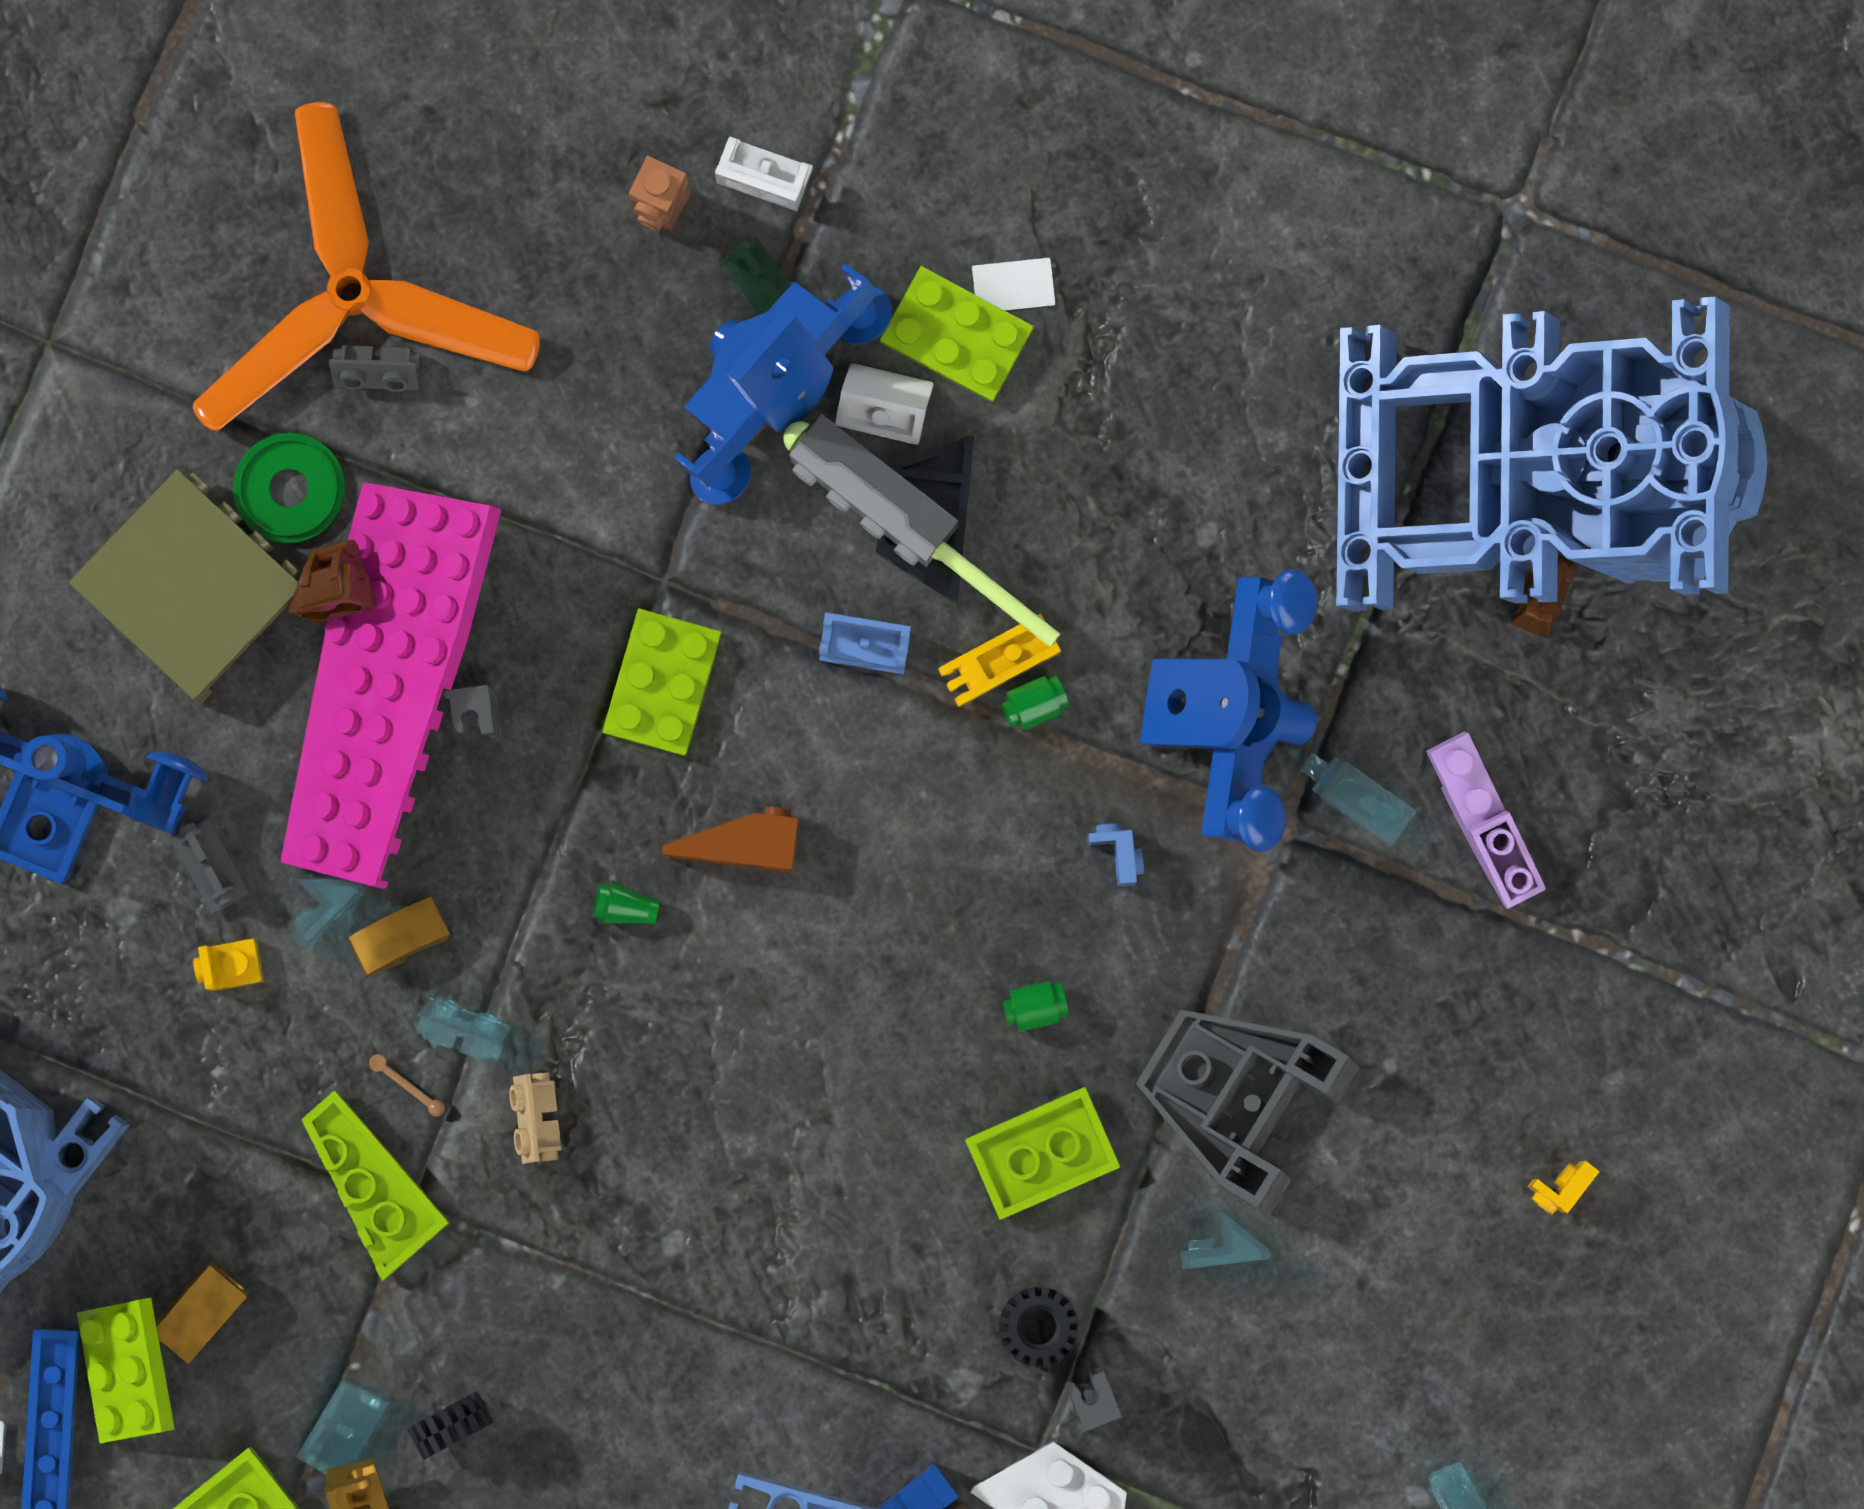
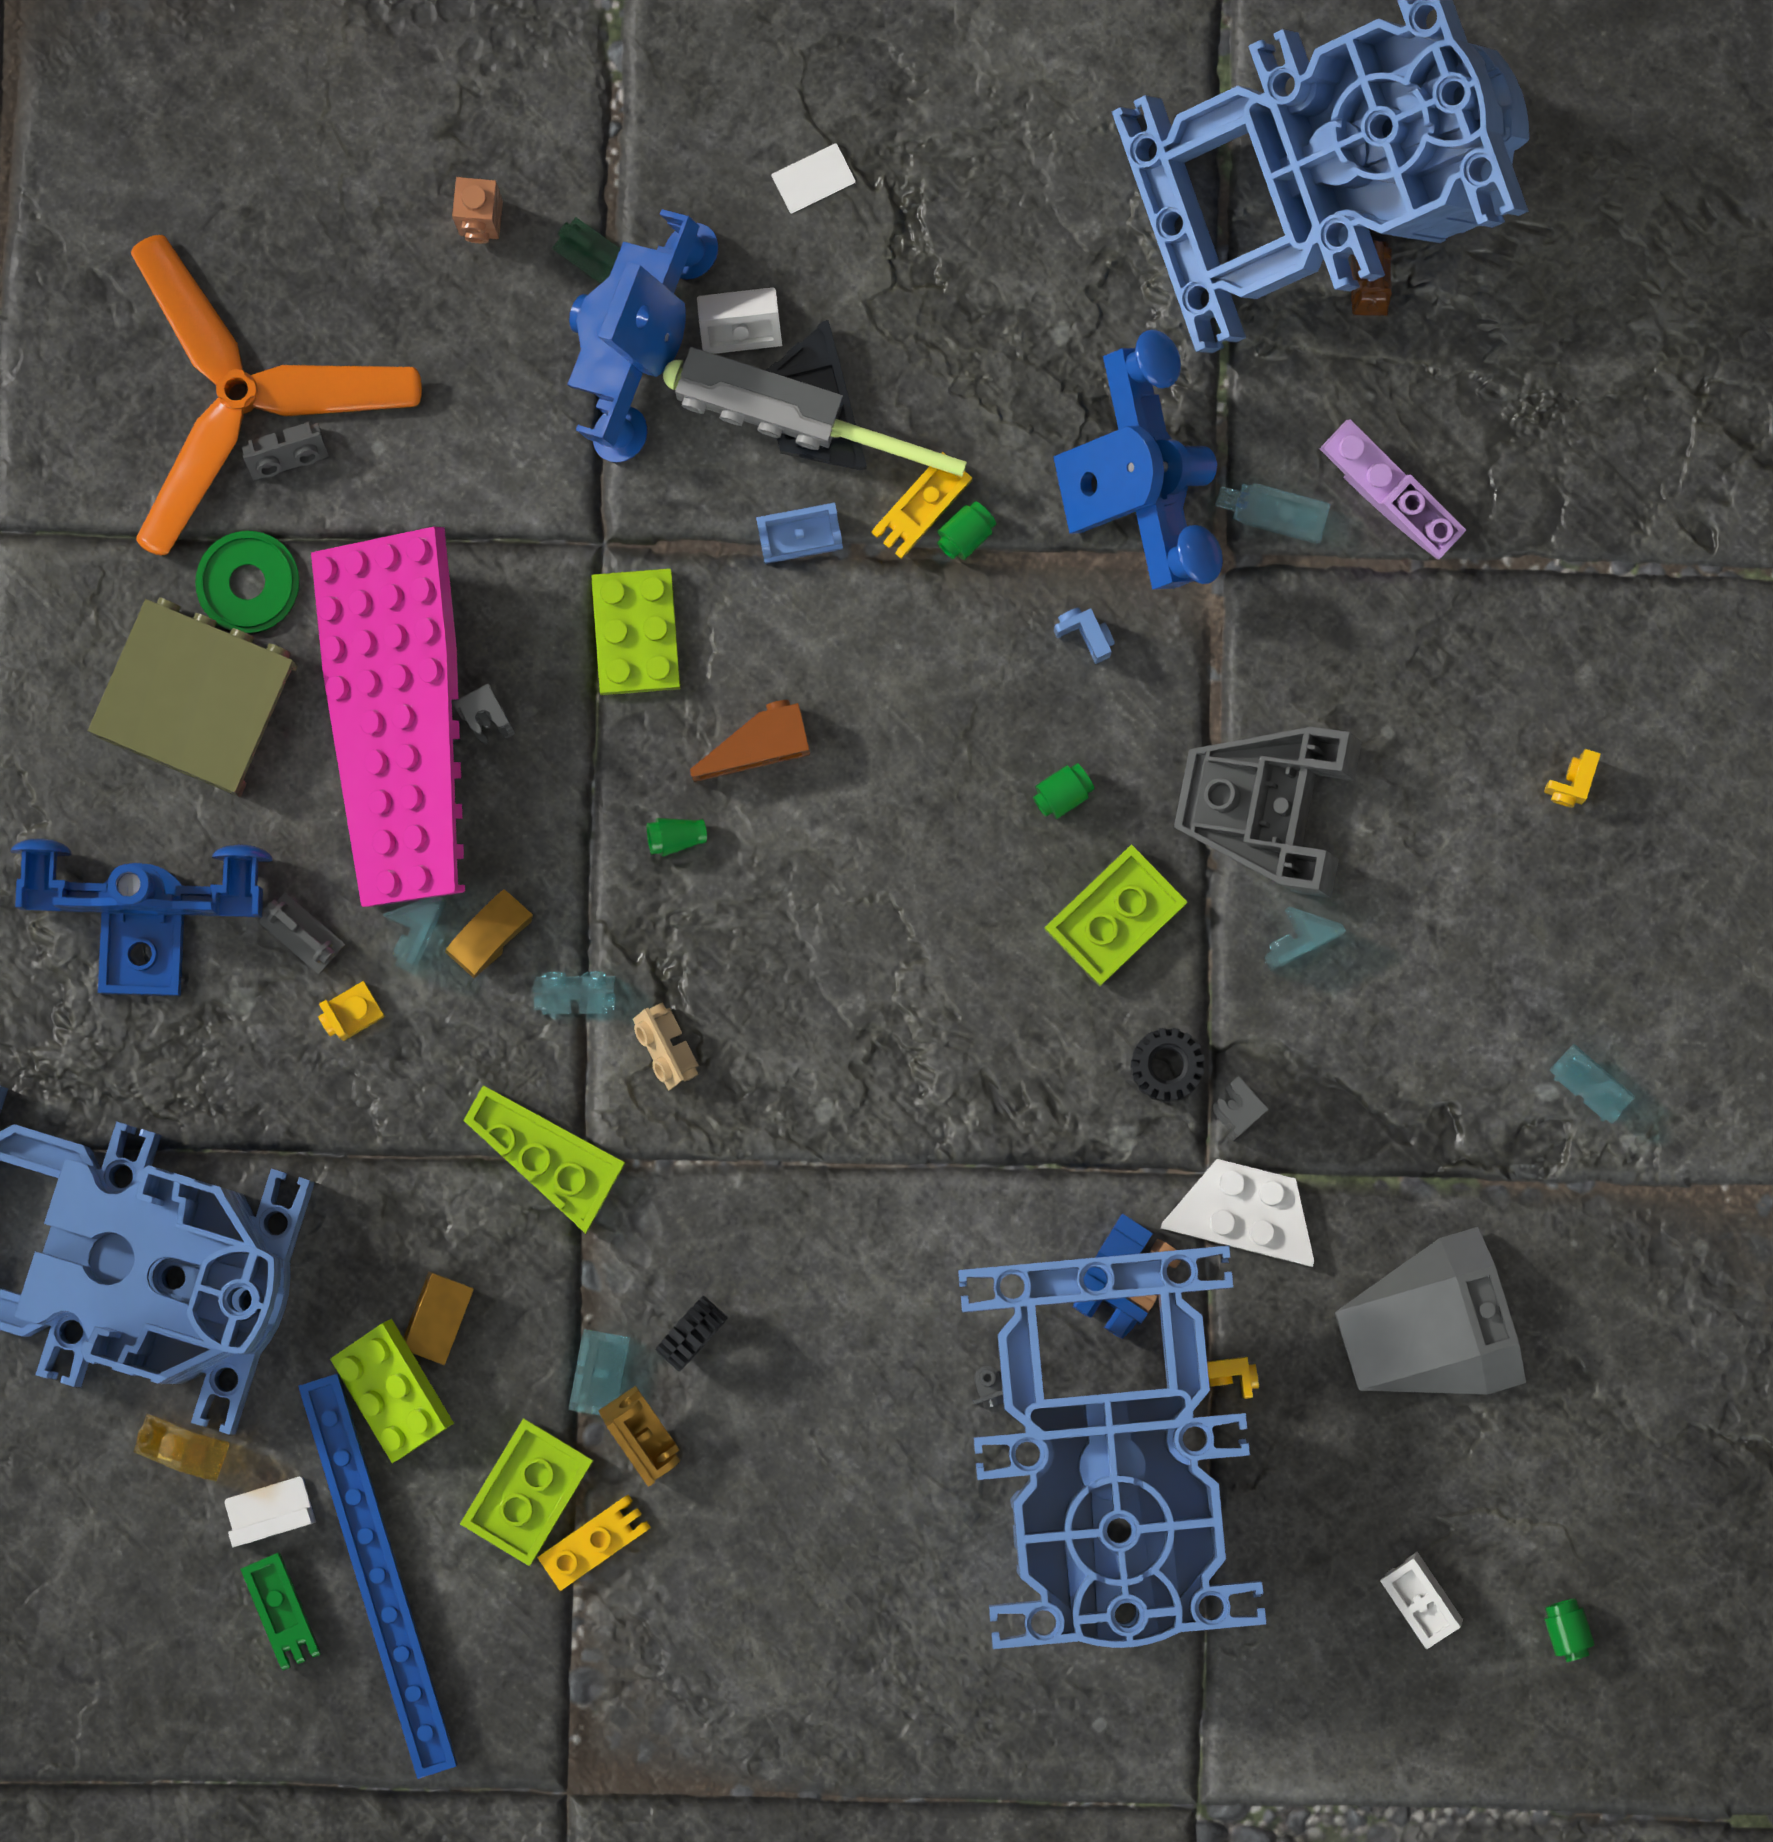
camera: 15 degrees left, 0 degrees up
(333, 584) = (320, 654): reddish brown piece -> none
(379, 1063) = (512, 1050): medium nougat hinge -> none
(762, 174) = (560, 160): white hinge -> none
(956, 334) = (780, 238): lime plate -> none

